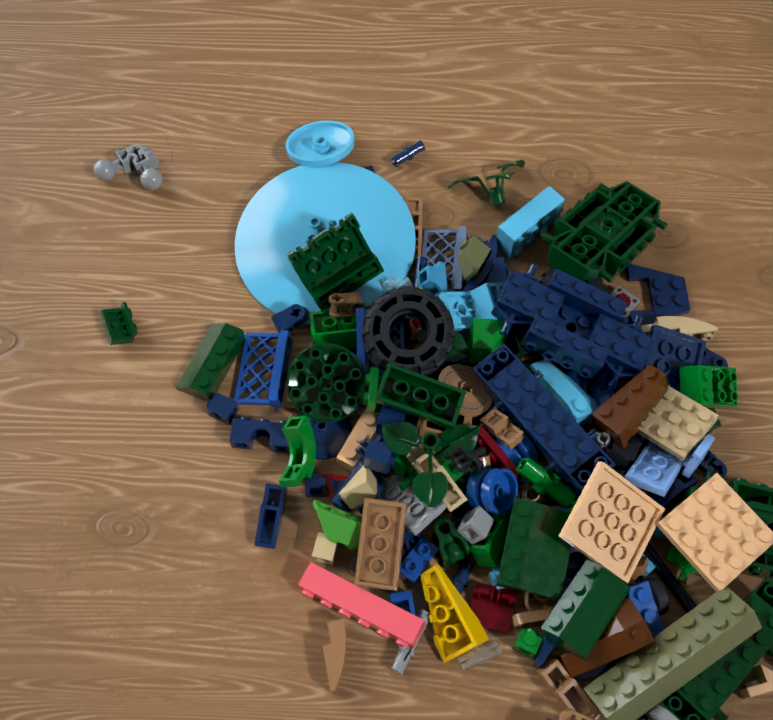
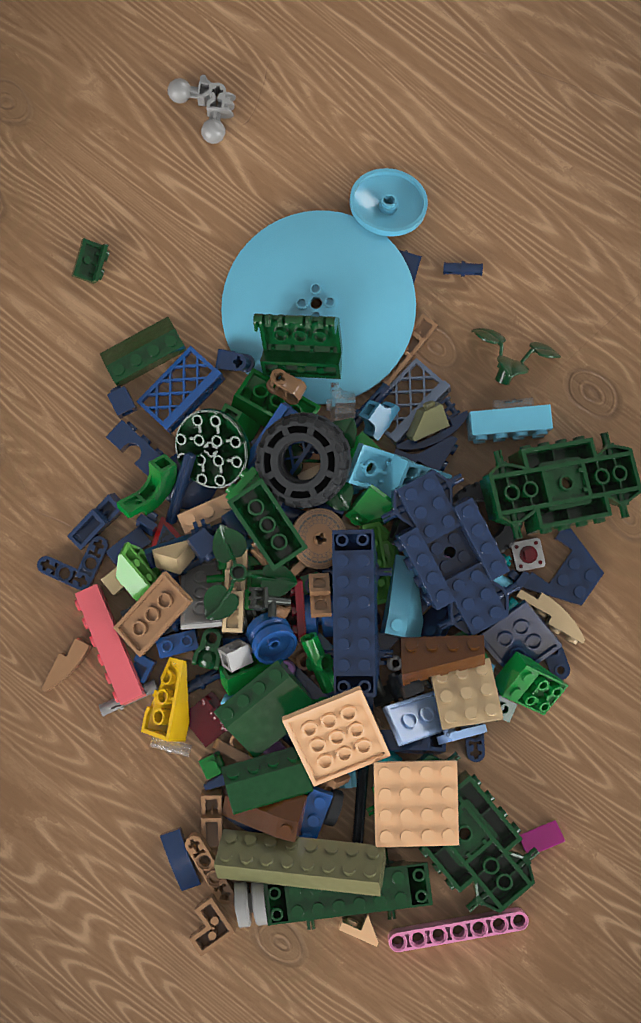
camera: 40 degrees right, 20 degrees up
(289, 565) = (82, 570): none -> dark blue beam
(310, 523) = (136, 537): none -> dark blue slope
(322, 435) = (180, 487): none -> dark blue axle

